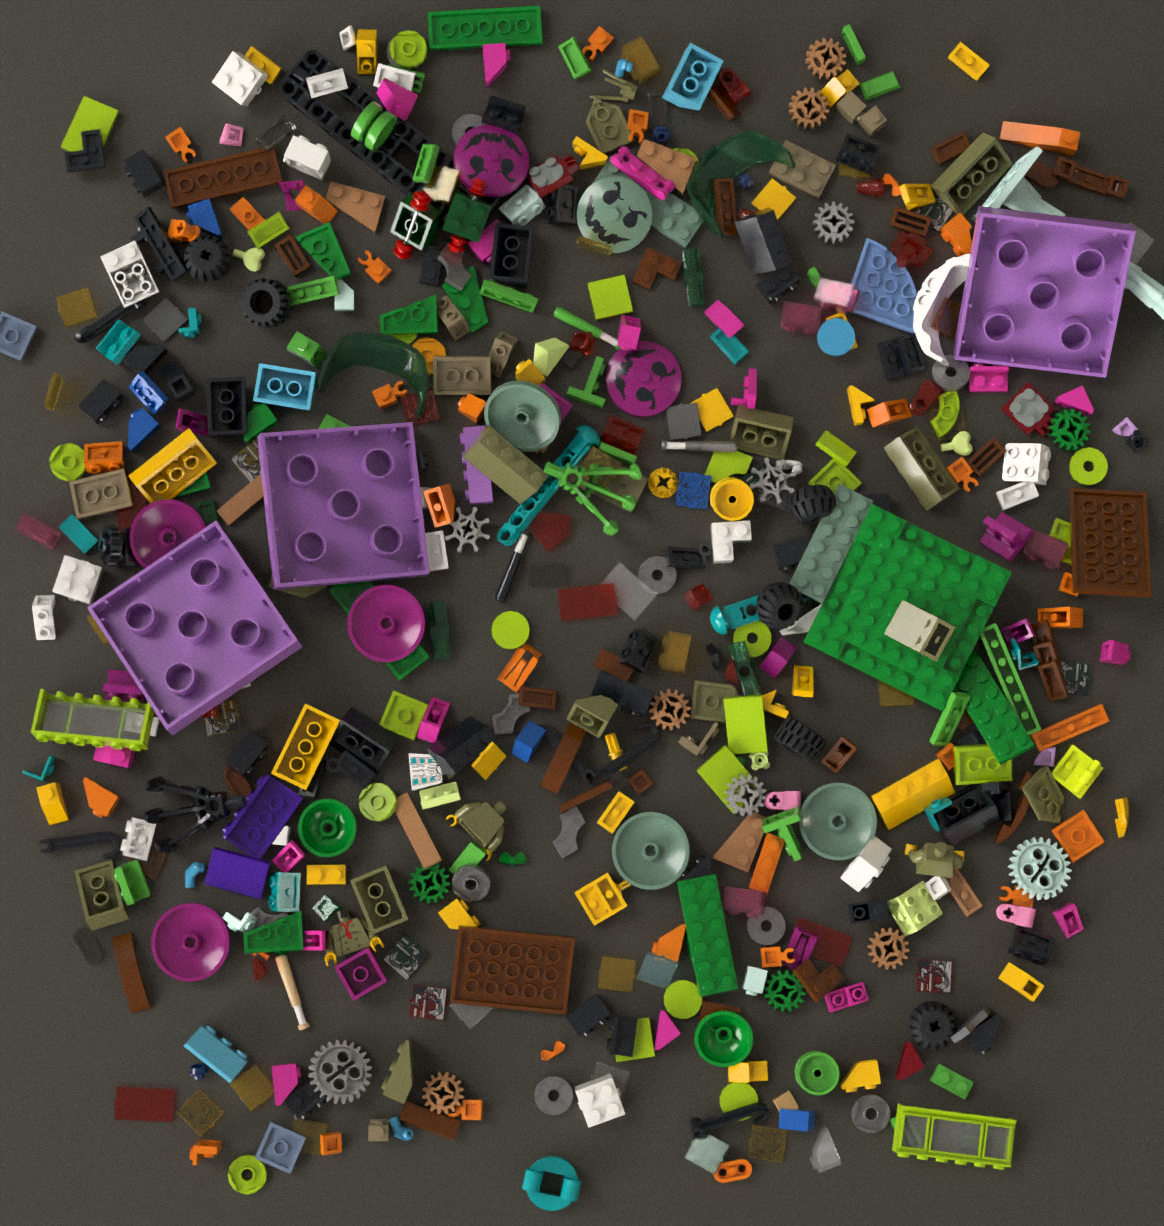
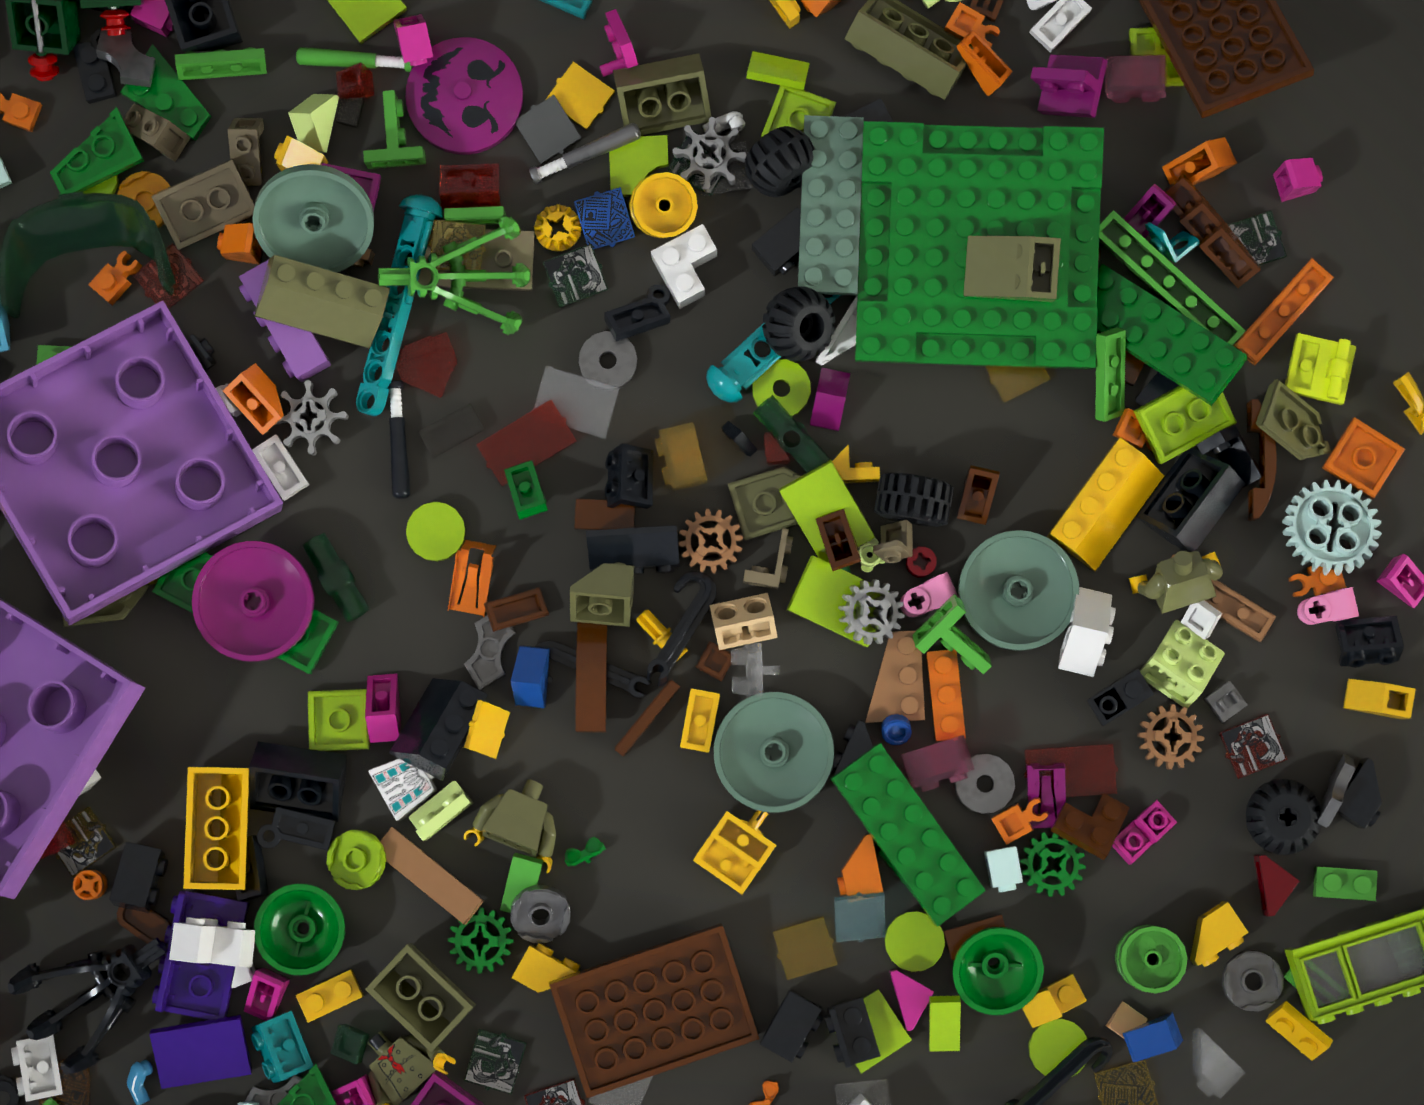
camera: 15 degrees left, 0 degrees up
(213, 746) = (85, 887): none -> orange wheel
(271, 811) = (207, 942): none -> white brick
(571, 823) = (649, 793): flat silver tile -> none
(574, 630) = (526, 490): none -> green slope
(660, 516) = (575, 275): none -> piece
(662, 788) = (753, 682): none -> clear hips
(667, 765) = (743, 621): none -> tan brick
(678, 1055) = (944, 1023): none -> lime tile
(697, 597) = (678, 365): clear red slope -> none
(728, 870) = (896, 729): none -> blue tile
(745, 743) = (838, 540): none -> reddish brown slope
(778, 759) = (895, 542): none -> dark tan bracket
(787, 778) = (917, 564): none -> dark red wheel
(802, 681) = (880, 416): yellow slope -> none
(884, 1154) = (1299, 1030): none -> yellow plate
(930, 942) = (1225, 701): none -> flat silver tile
(936, 806) = (1146, 507): teal bracket -> none
(960, 505) = (983, 62): none -> orange slope
(1046, 757) = (1269, 369): lavender tile -> none
(1066, 584) = (1188, 114): orange plate -> none

